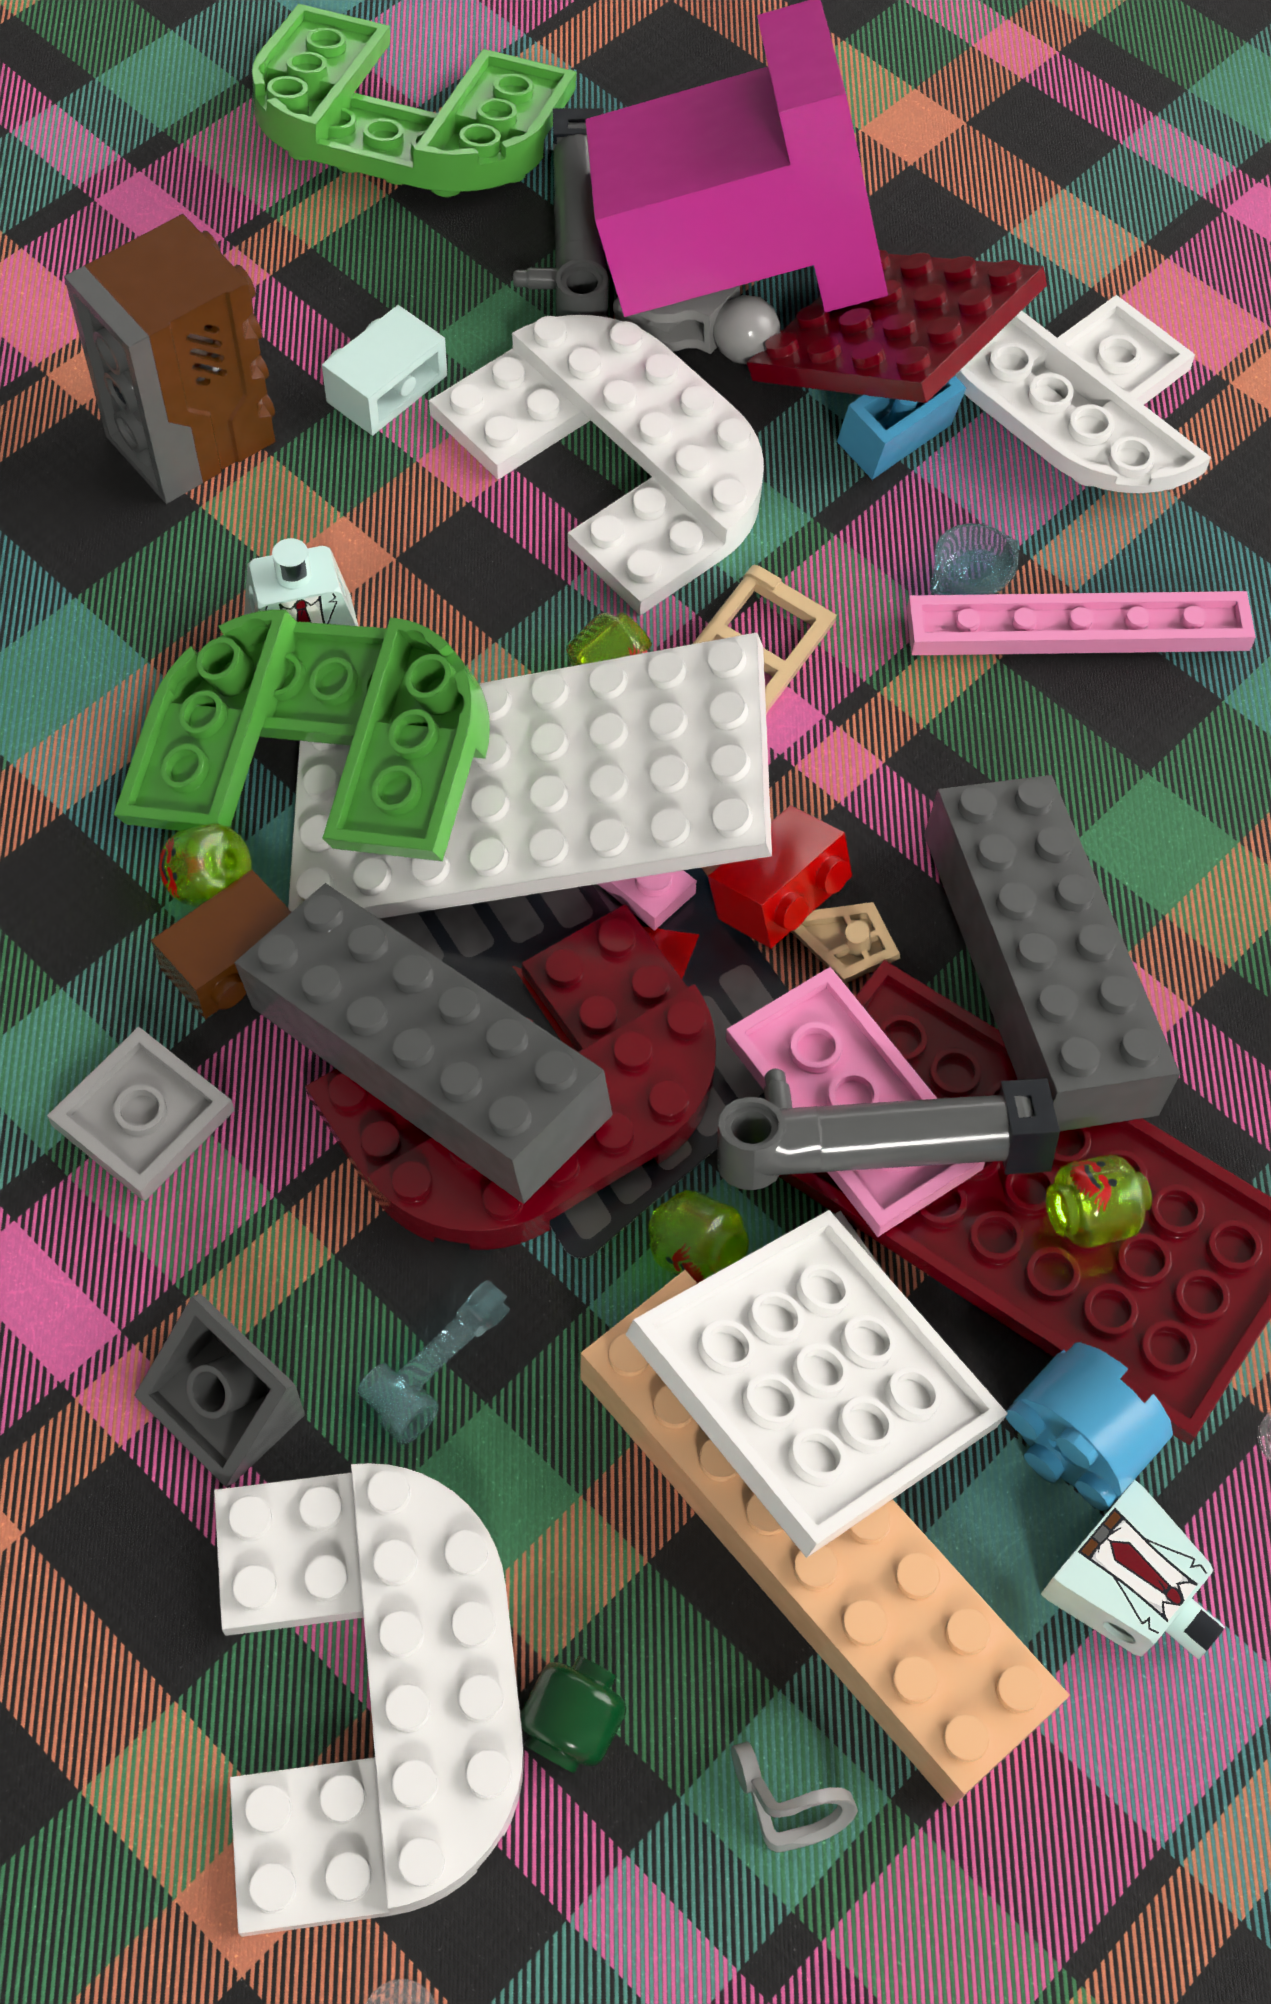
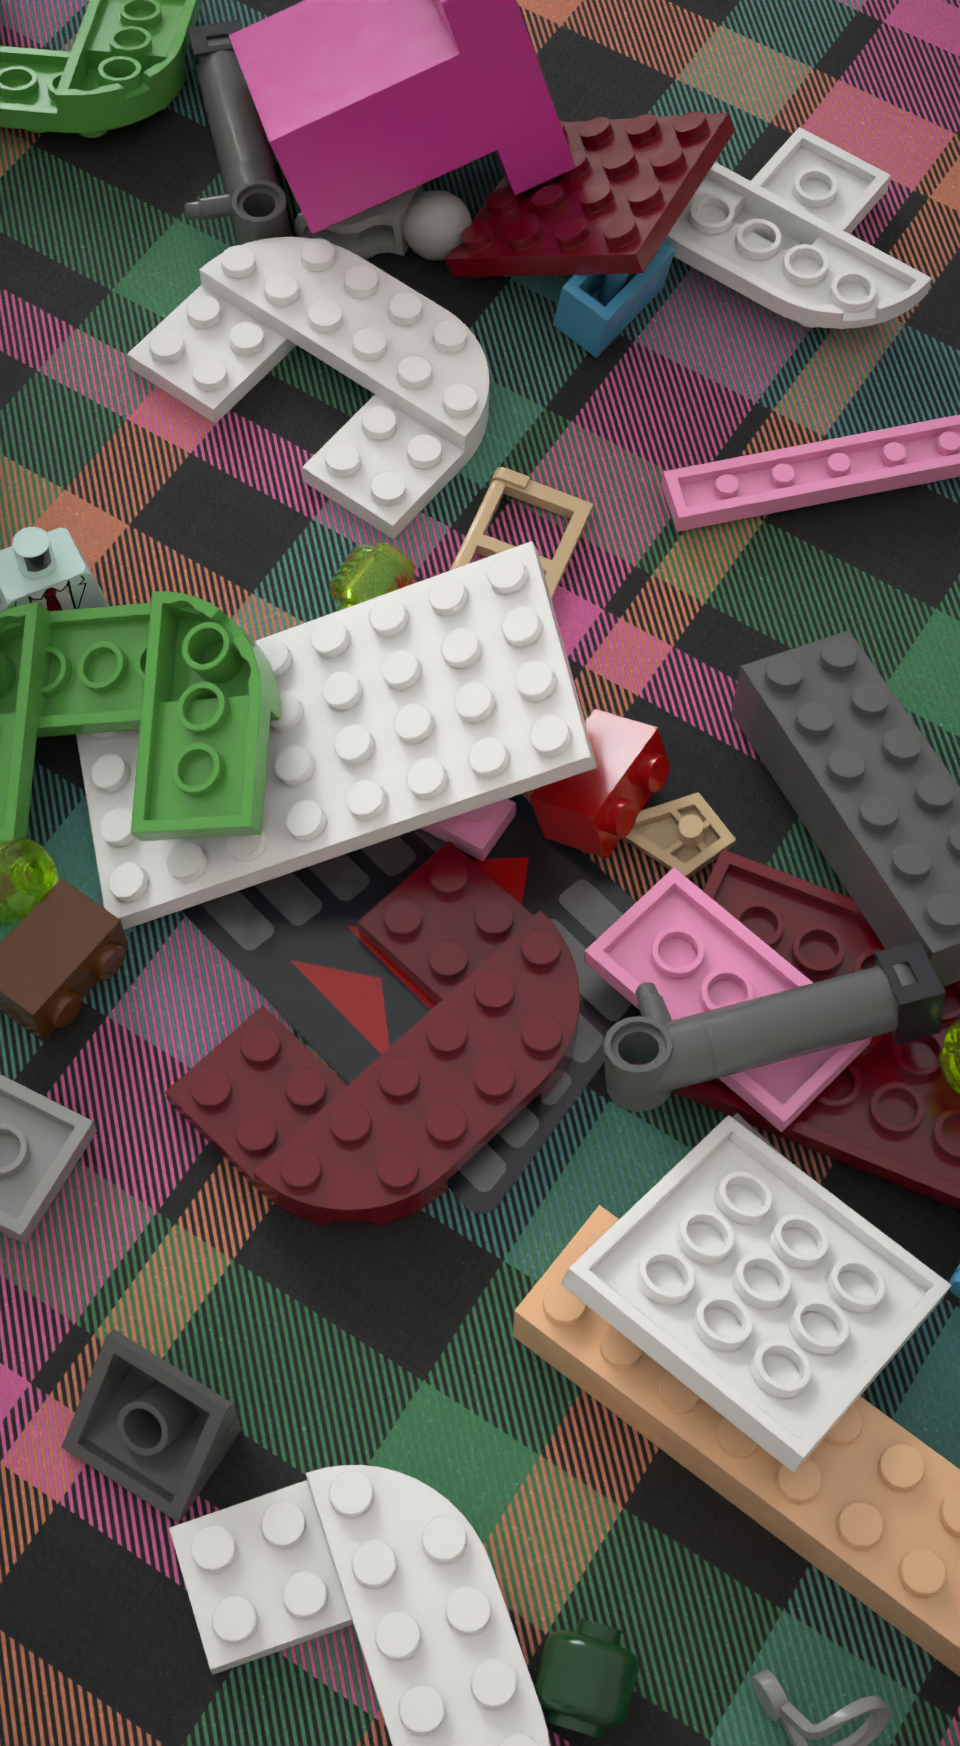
camera: 10 degrees left, 0 degrees up
(384, 369) = (74, 329): light aqua brick -> none
(399, 1396) = (335, 1391): clear light blue brick -> none
(426, 1041) = (283, 1022): dark grey brick -> none
(696, 1235) = (601, 1167): clear neon green head -> none
(973, 561) = (718, 424): clear light blue hat -> none

